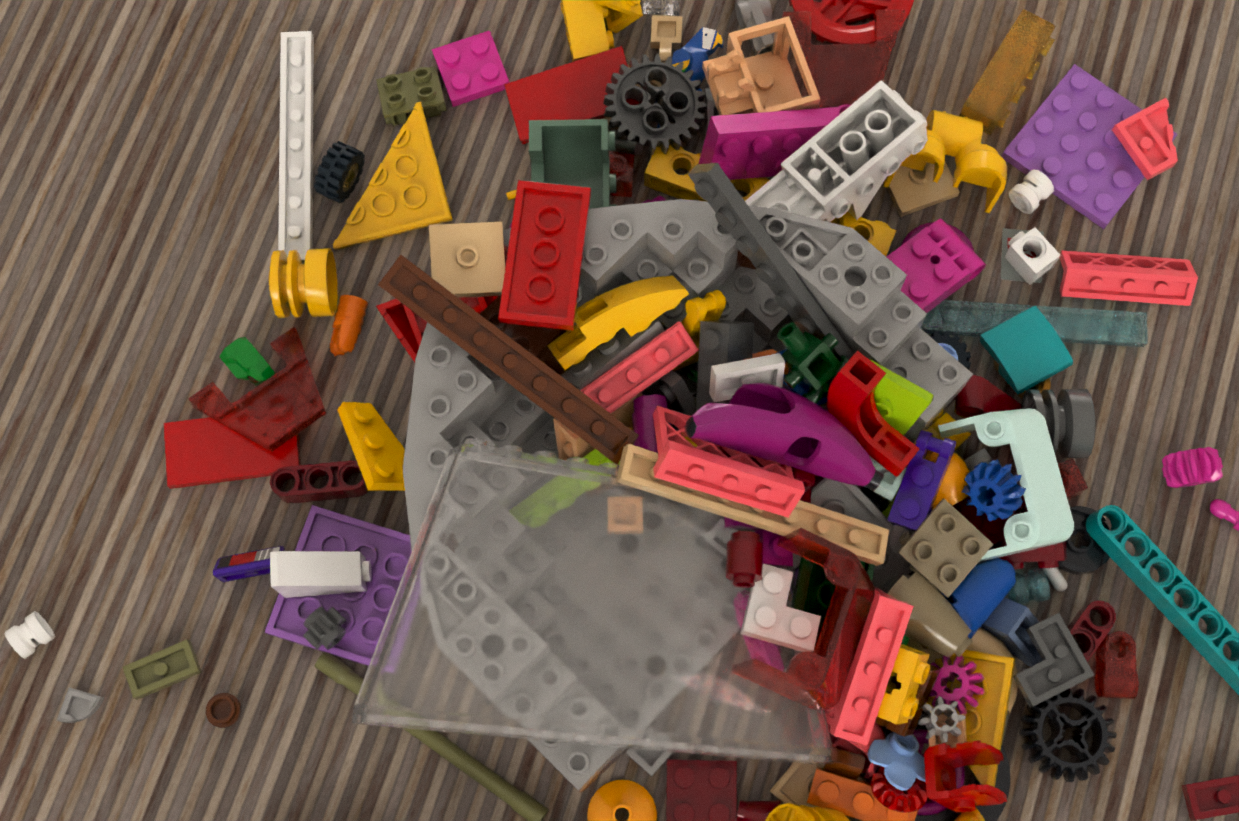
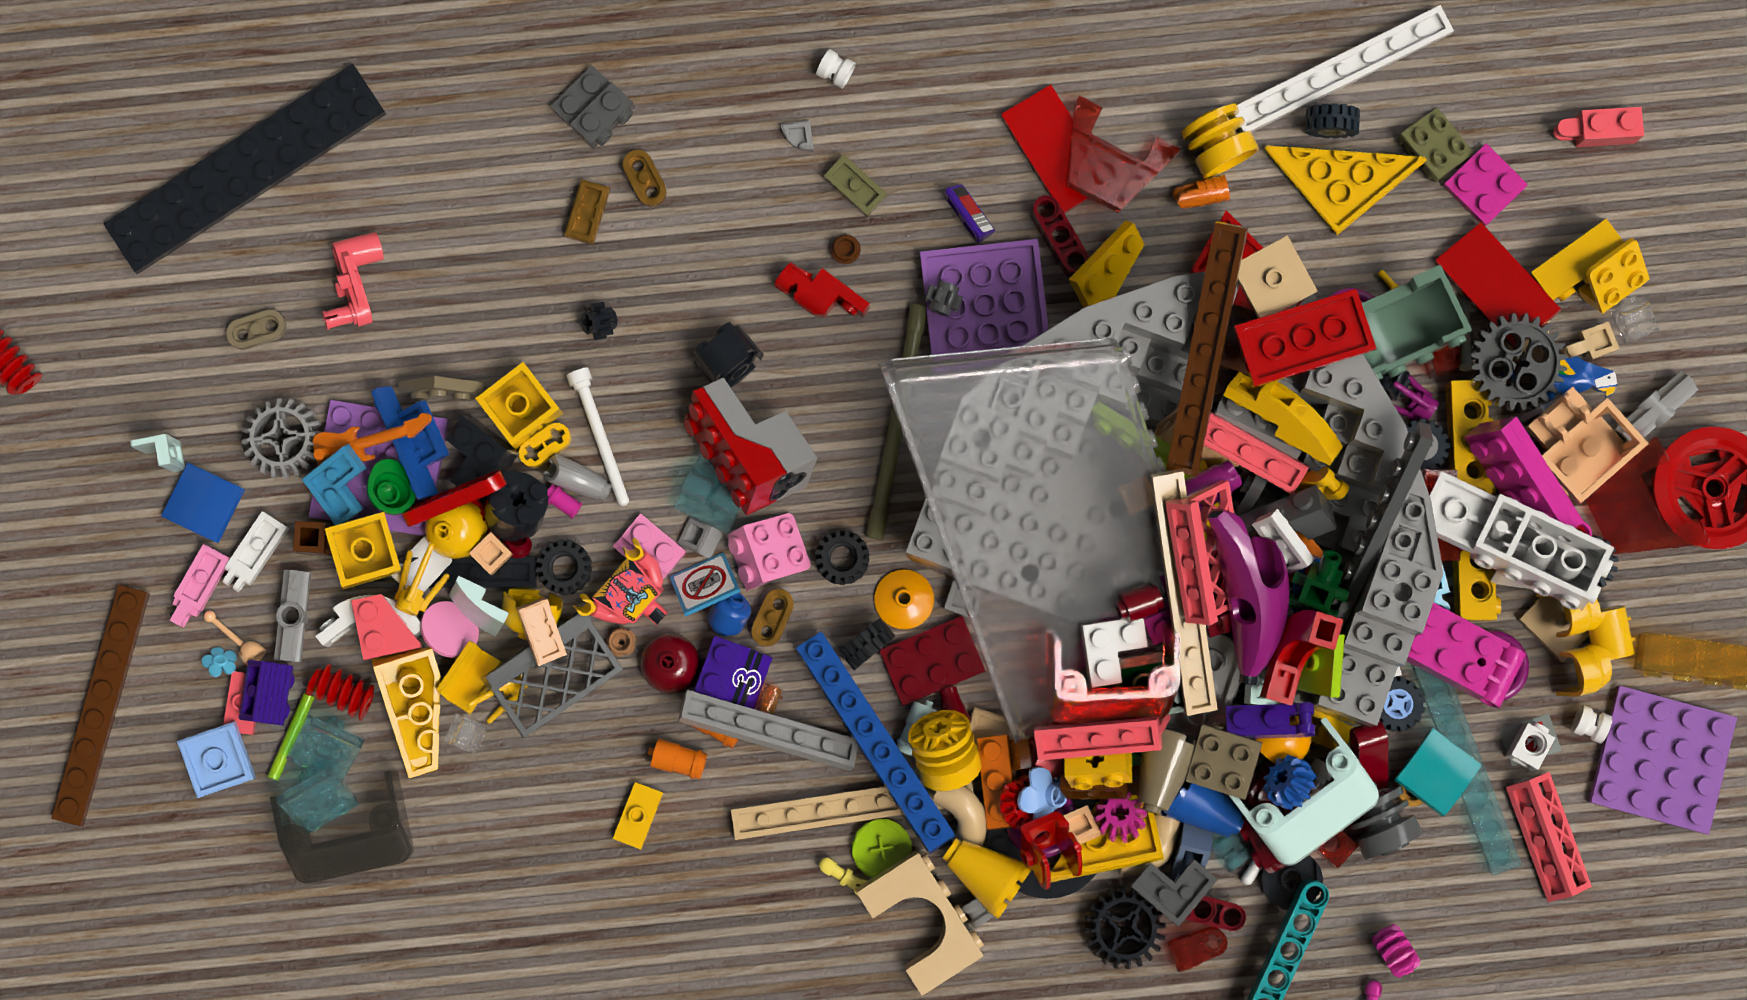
camera: 65 degrees right, 10 degrees up
(246, 362) = (1131, 126): green rock -> none
(255, 758) = (820, 293): none -> red plate
(318, 572) = (984, 273): white slope -> none
(951, 721) = (1093, 810): light grey gear -> none
(1149, 139) = (1687, 808): coral wing -> none

